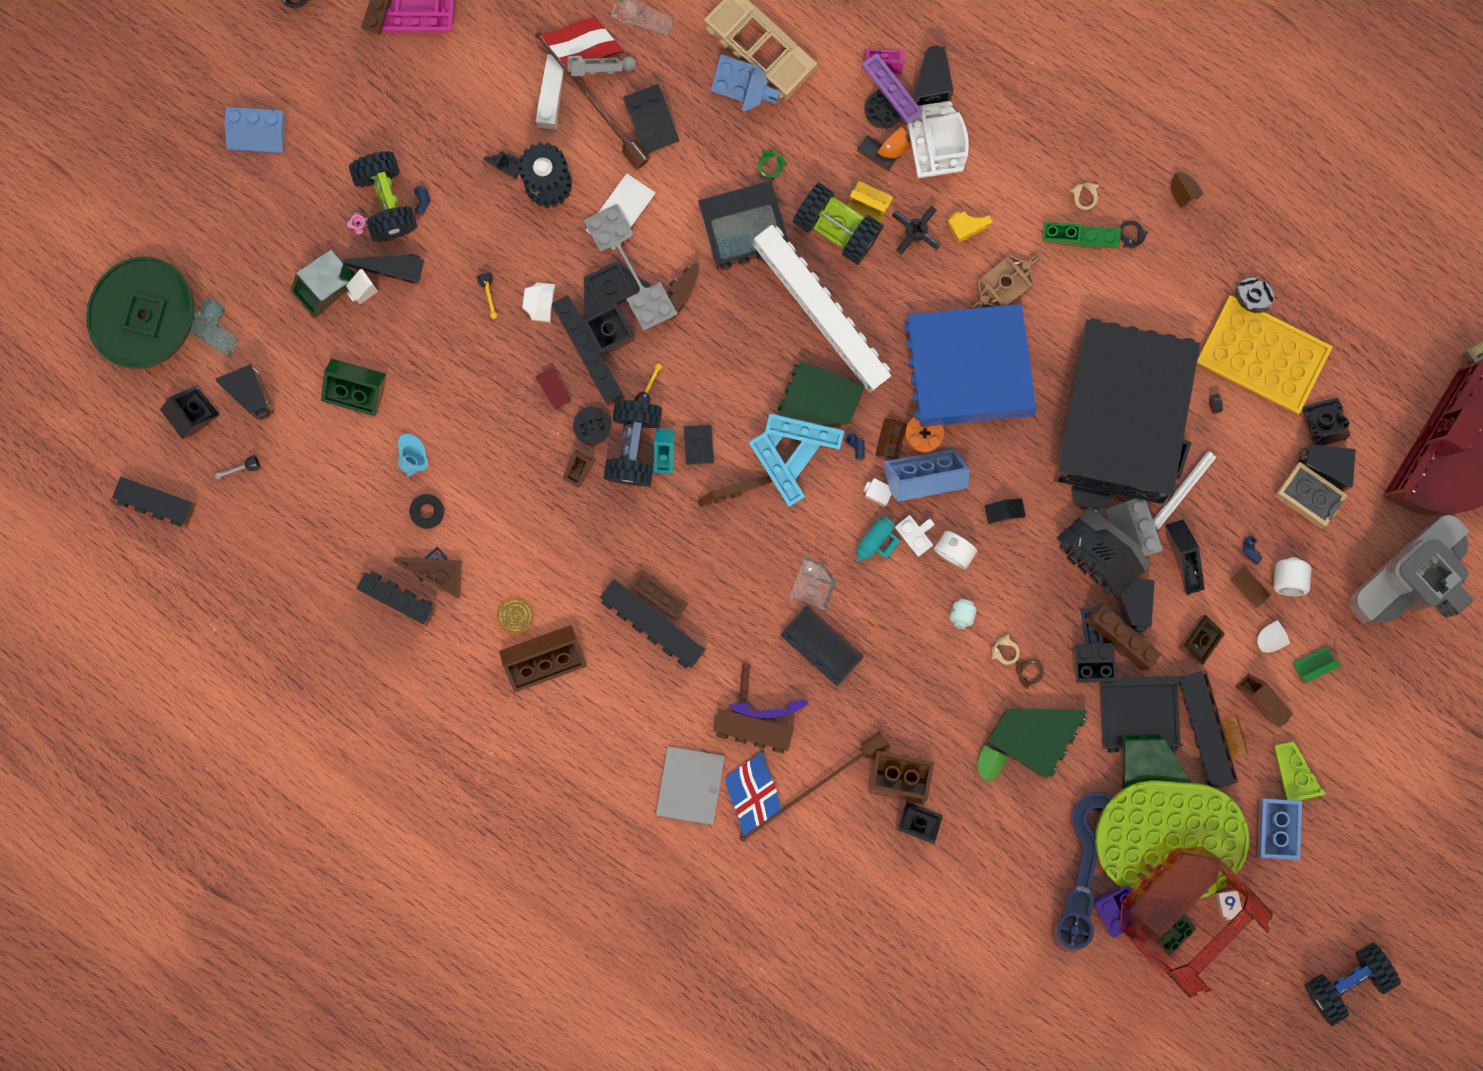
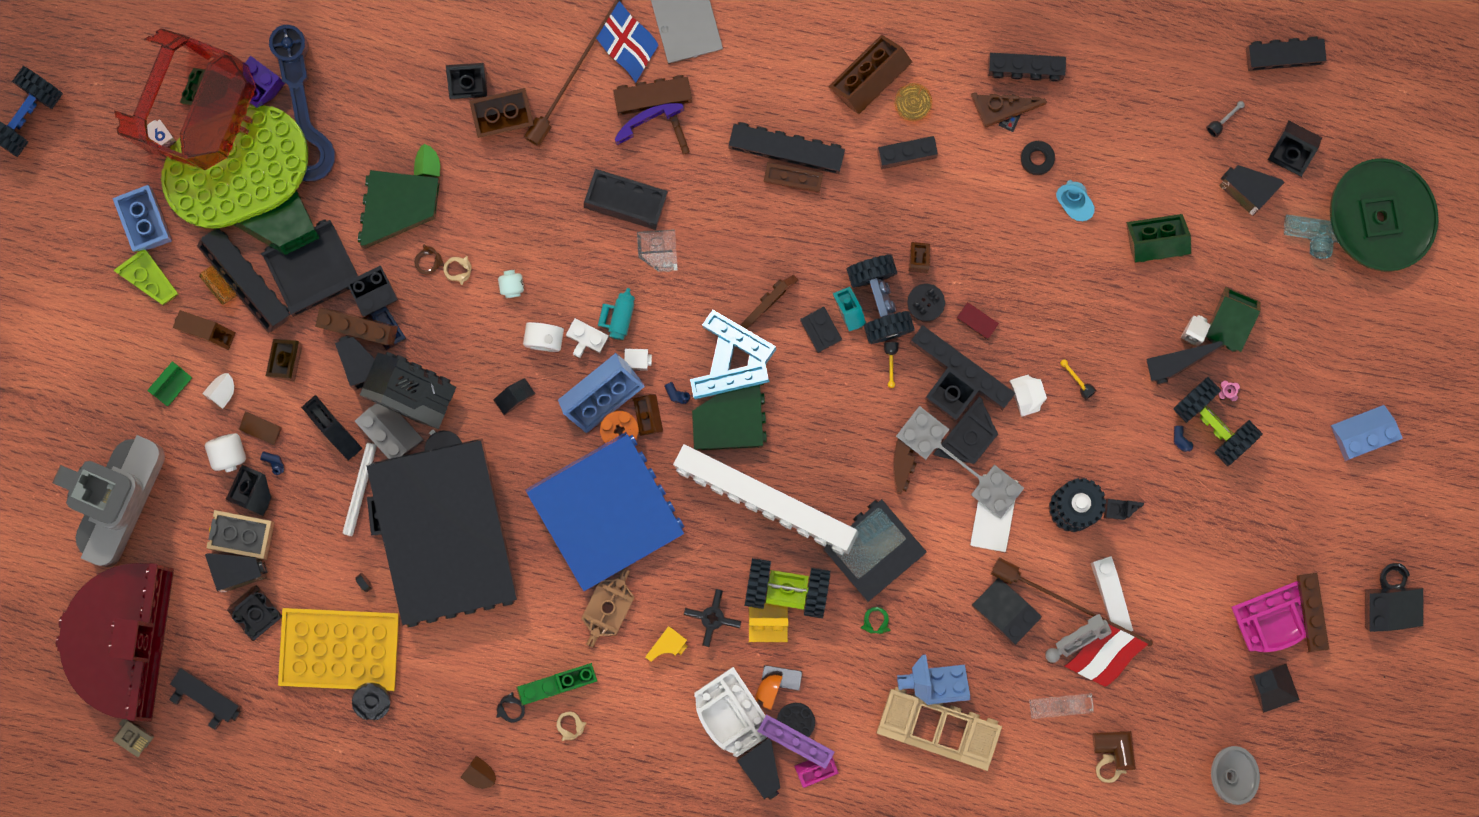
camera: 150 degrees right, 0 degrees up
(543, 569) = (907, 152): none -> black brick
(1285, 532) = (250, 490): none -> black slope
(1401, 366) = (206, 695): none -> black brick

